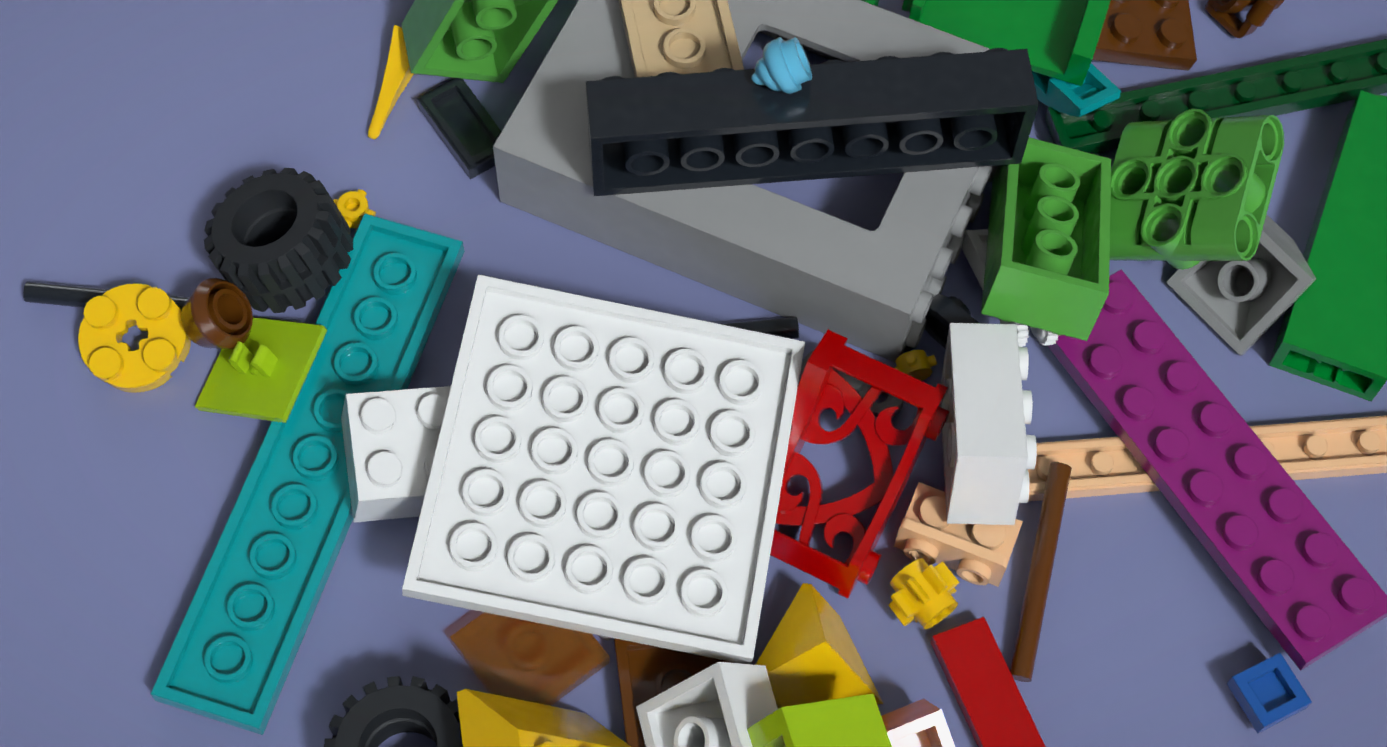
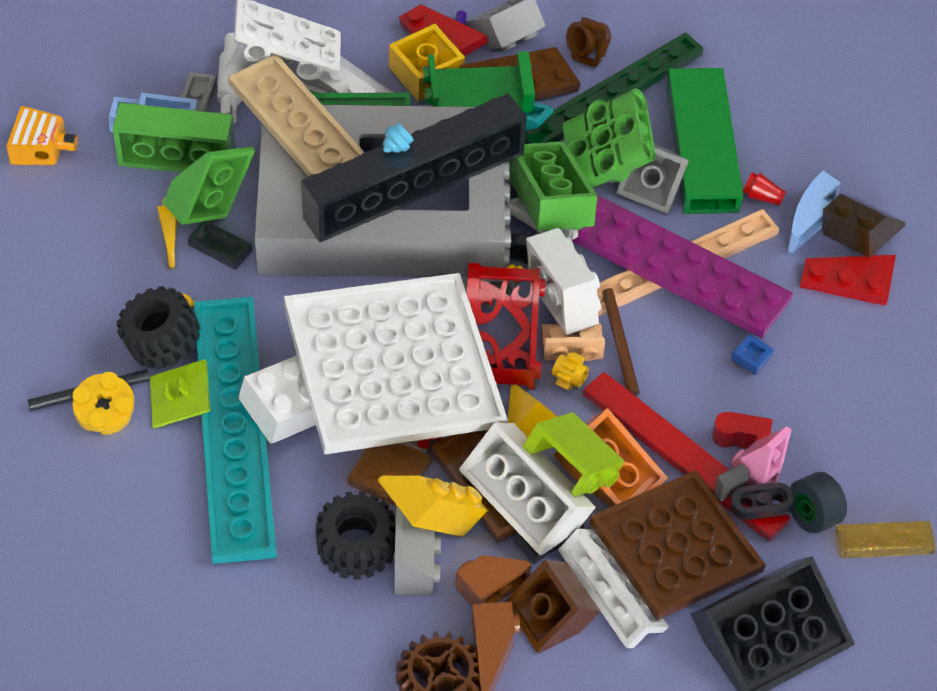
camera: 25 degrees left, 10 degrees down
(217, 315) = (145, 374): reddish brown cone -> none

